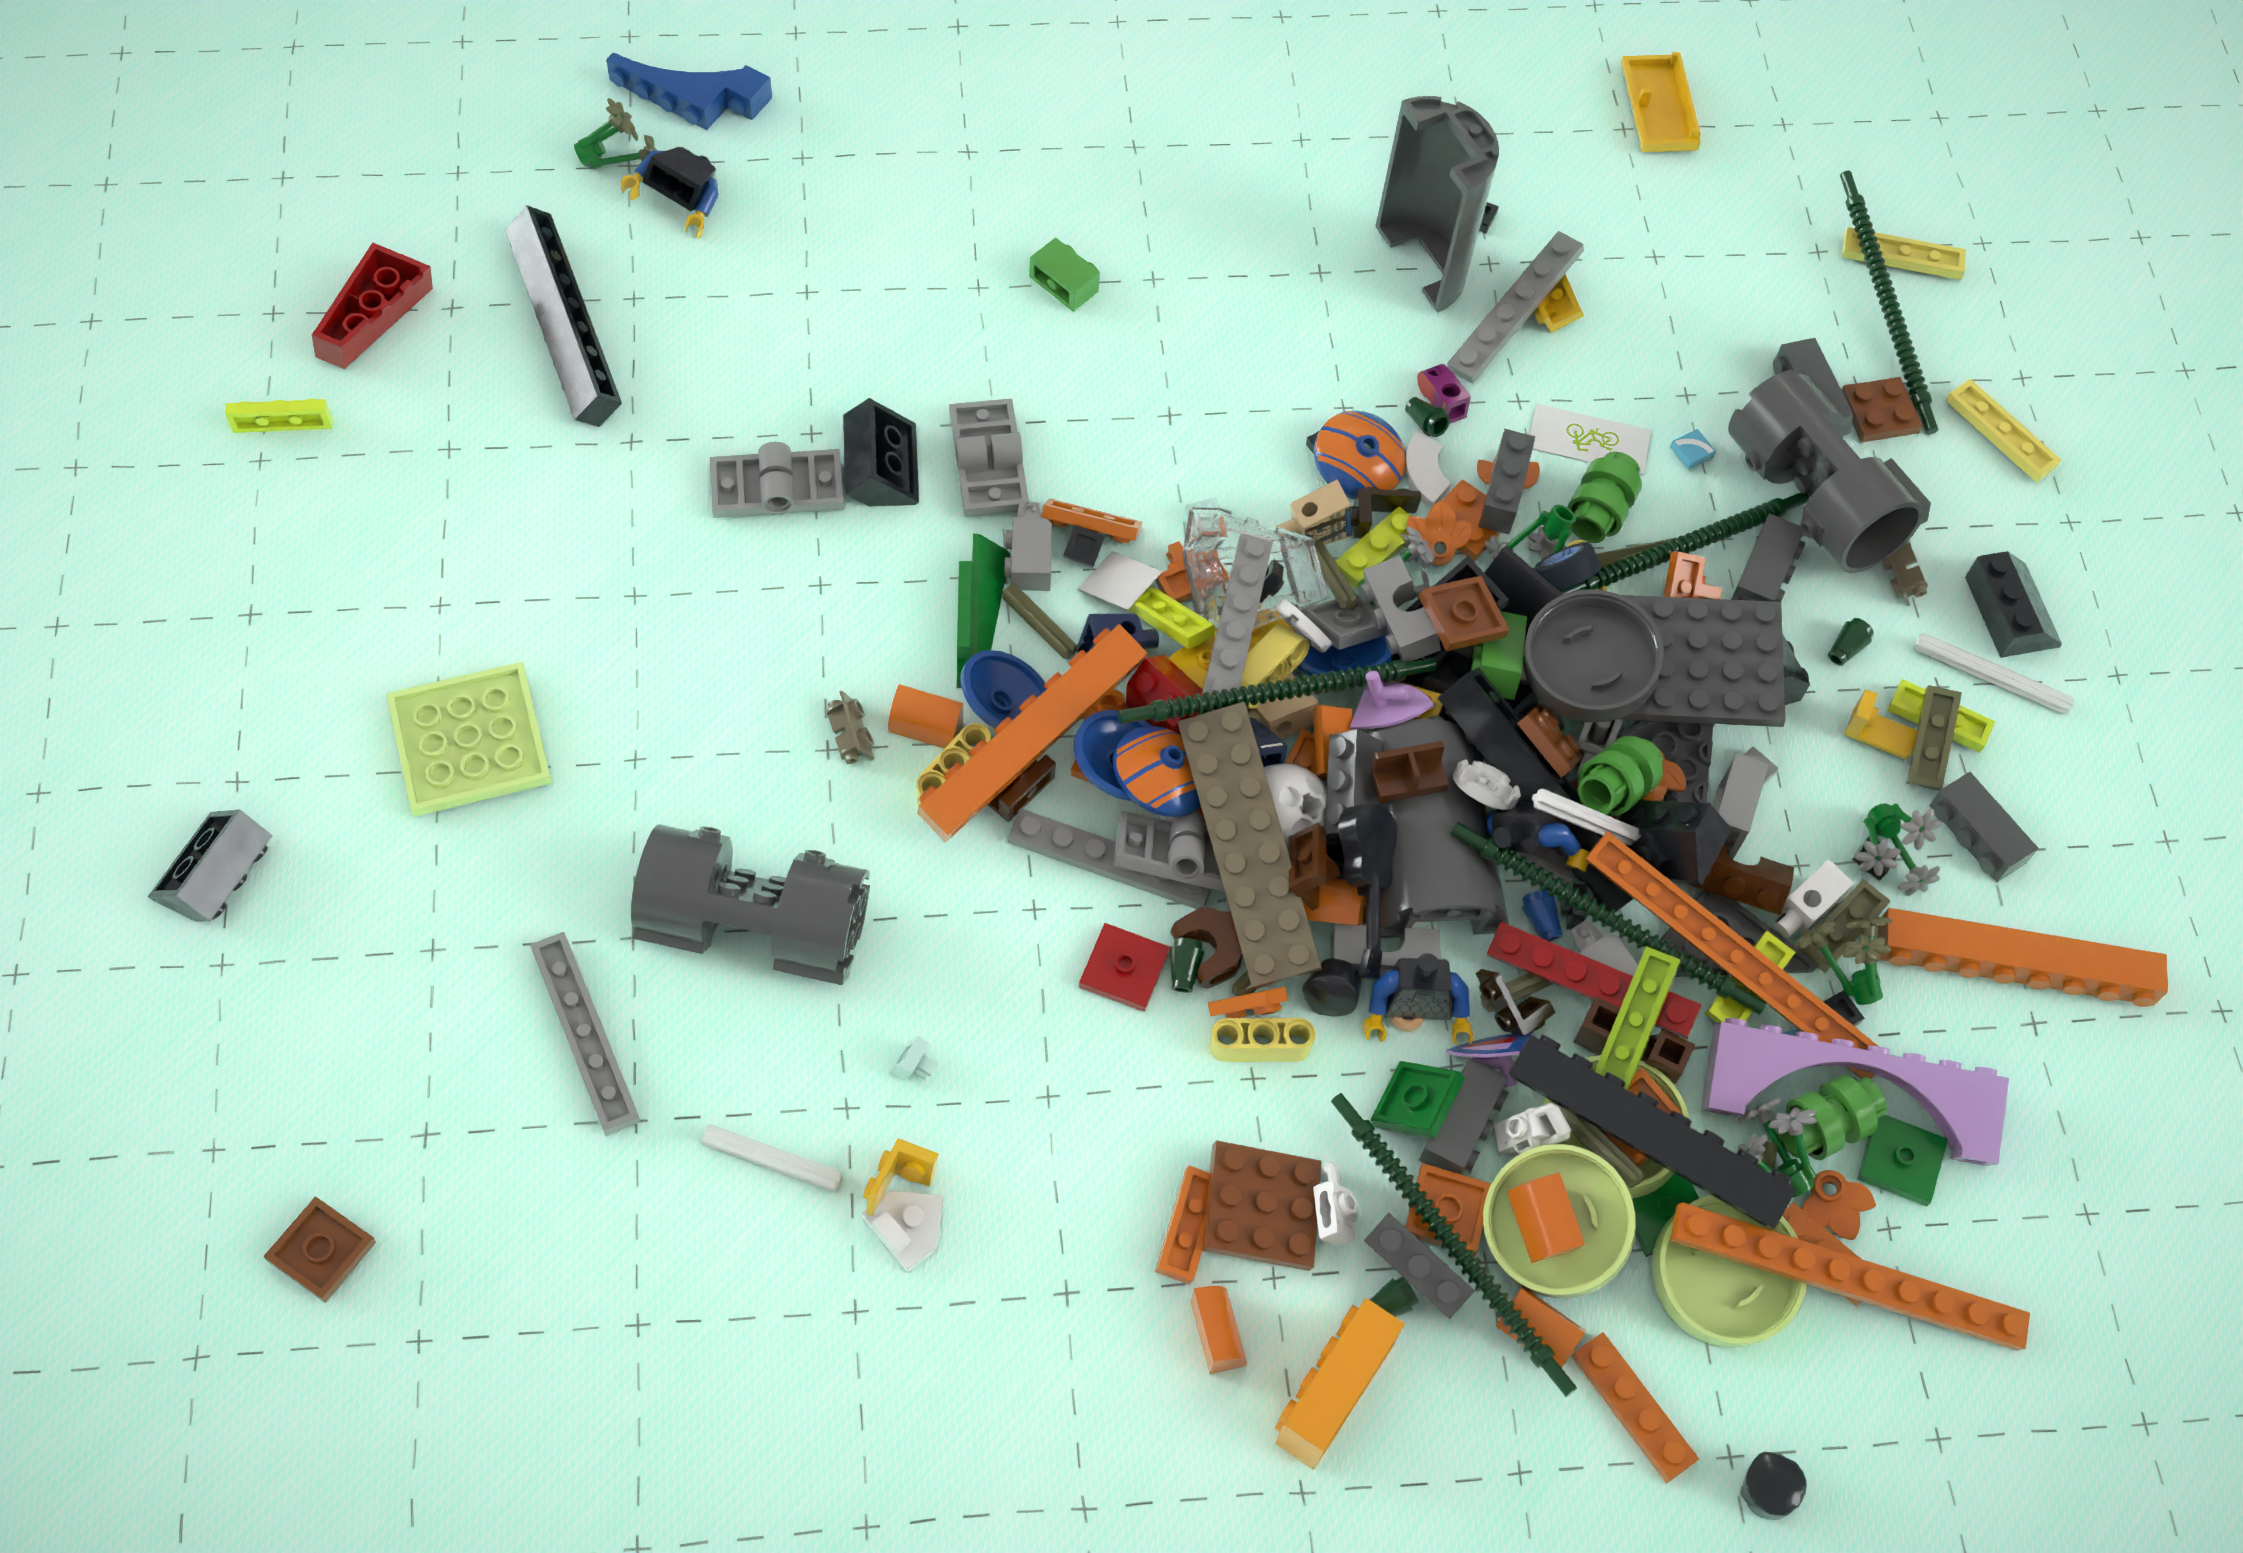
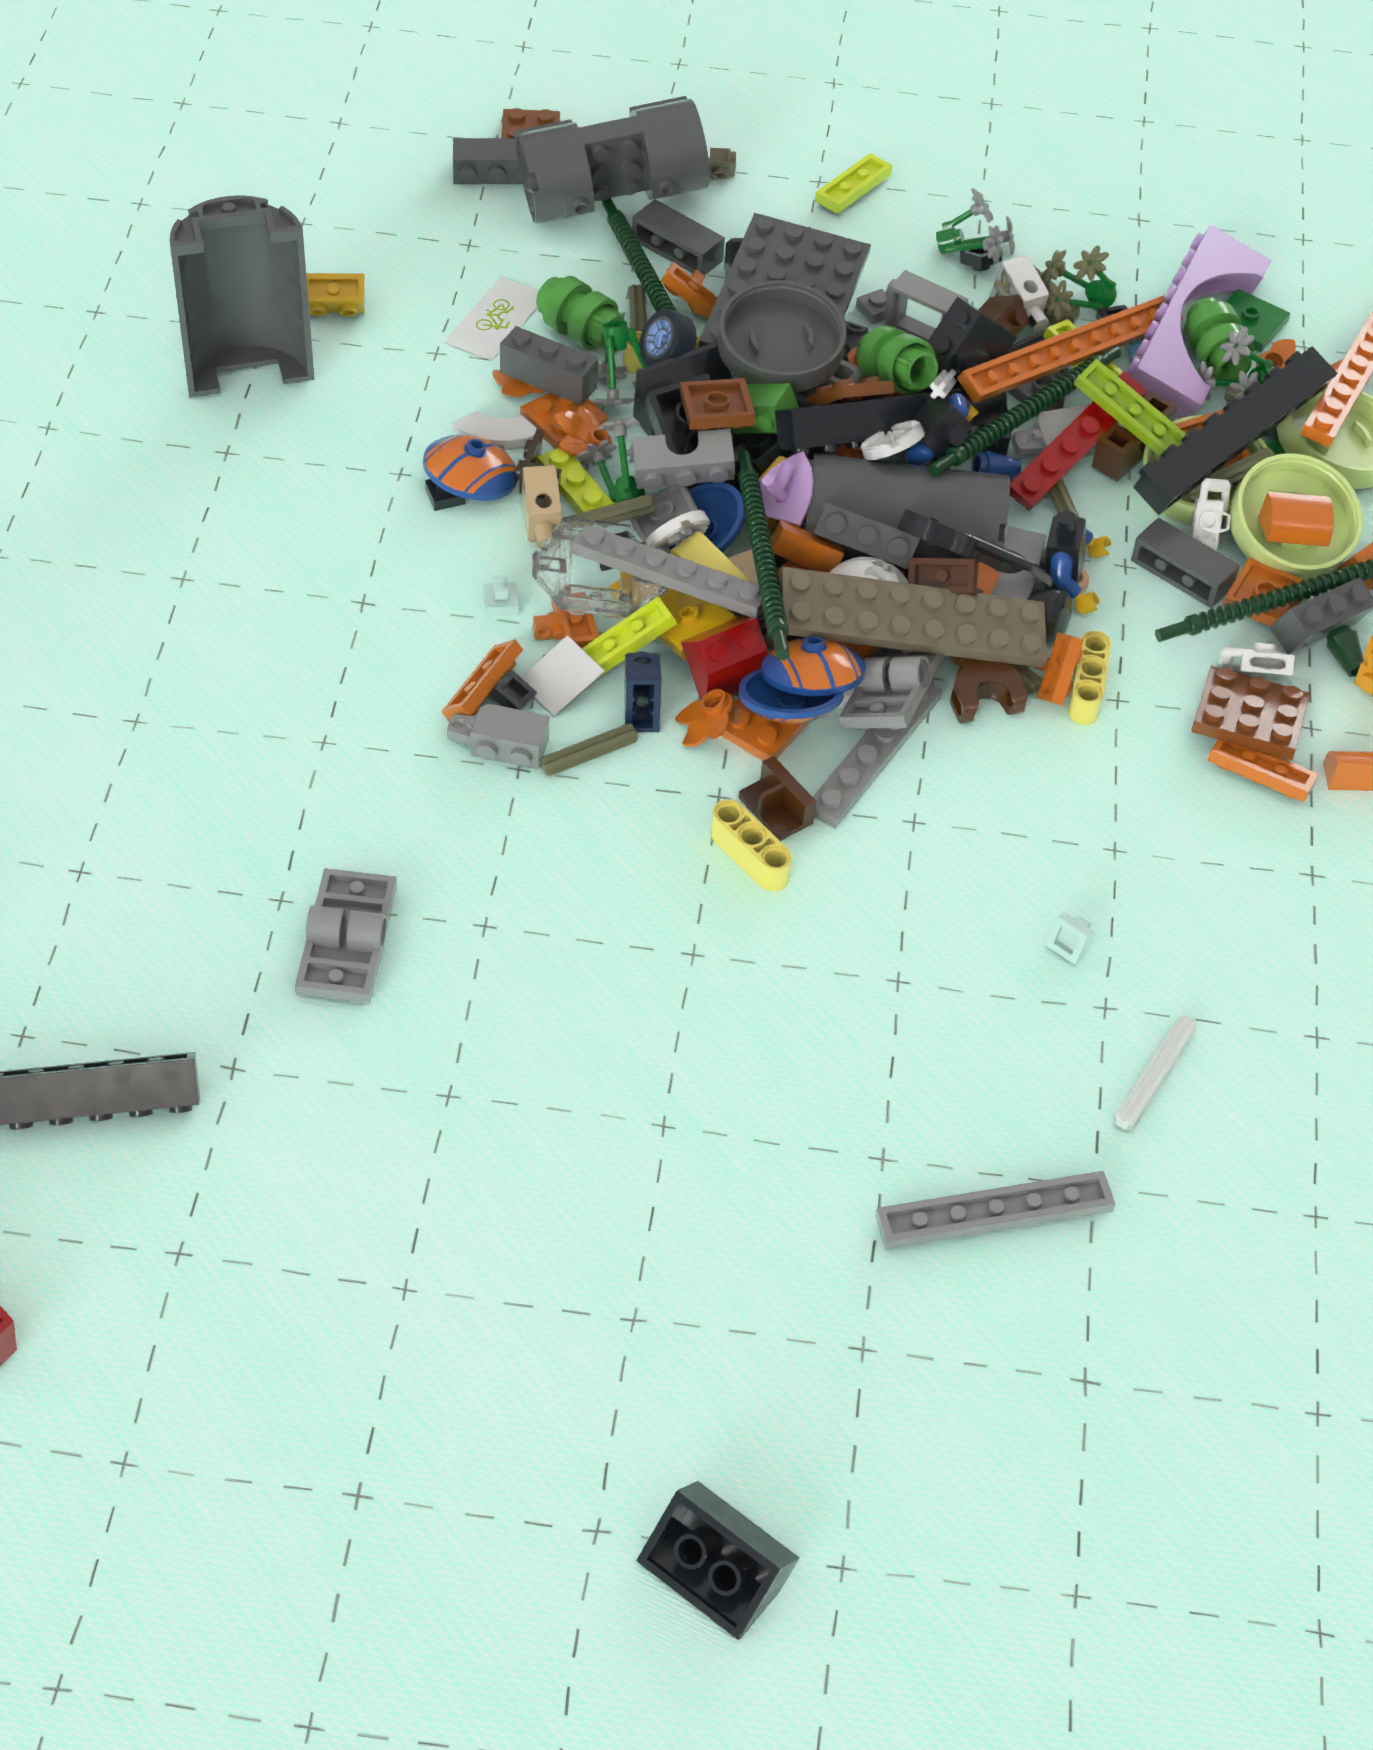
camera: 75 degrees left, 10 degrees down
(278, 415) = (71, 1423): neon yellow plate -> none
(320, 1249) = (1215, 1488): dark orange plate -> none
(468, 739) = (605, 1274): yellowish green plate -> none
(689, 889) = (871, 1055): dark grey cylinder -> none
(848, 716) = (694, 920): dark tan hinge -> none
(880, 456) = (343, 839): black slope -> none
(905, 1160) = (1185, 968): yellow bracket -> none
(908, 1225) = (1238, 977): white plate -> none
(925, 716) = (686, 856): orange brick -> none
(979, 599) = (561, 801): green wedge -> none
(988, 456) = (373, 747): light grey plate -> none
(998, 685) = (682, 782): blue dish -> none
(1031, 733) = (752, 754): orange brick -> none
(1064, 274) = (158, 639): bright green brick -> none
(1124, 967) = (992, 763): red plate -> none
(1185, 960) = (1001, 715): dark green cone -> none
(1409, 772) = (876, 483): reddish brown panel -> none
(1417, 1099) = (1166, 583): green plate -> none
(1428, 417) = (441, 411): dark green cone -> none
(1444, 391) = (416, 393): magenta leg -> none
(1494, 1052) = (1125, 520): shield -> none
(1515, 307) = (351, 323): light grey plate -> none
(1518, 1019) = (1088, 500): dark brown bracket -> none
(1661, 102) = (127, 164): yellow container -> none
(1693, 449) = (534, 254): medium azure tile -> none
(1850, 641) = (766, 205): dark green cone -> none
(1875, 262) = (315, 72): dark green hose -> none
(1877, 730) = (856, 221): yellow bracket -> none
(1910, 254) = (369, 69): light yellow plate -> none
(1934, 738) = (881, 187): olive plate -> none
(1983, 827) = (950, 192): dark grey brick -> none
(1994, 673) = (817, 145): white axle -> none
(2003, 430) = (580, 68): light yellow plate -> none
(2011, 605) = (758, 115): black slope -> none
(2024, 957) = (1091, 196): orange brick -> none

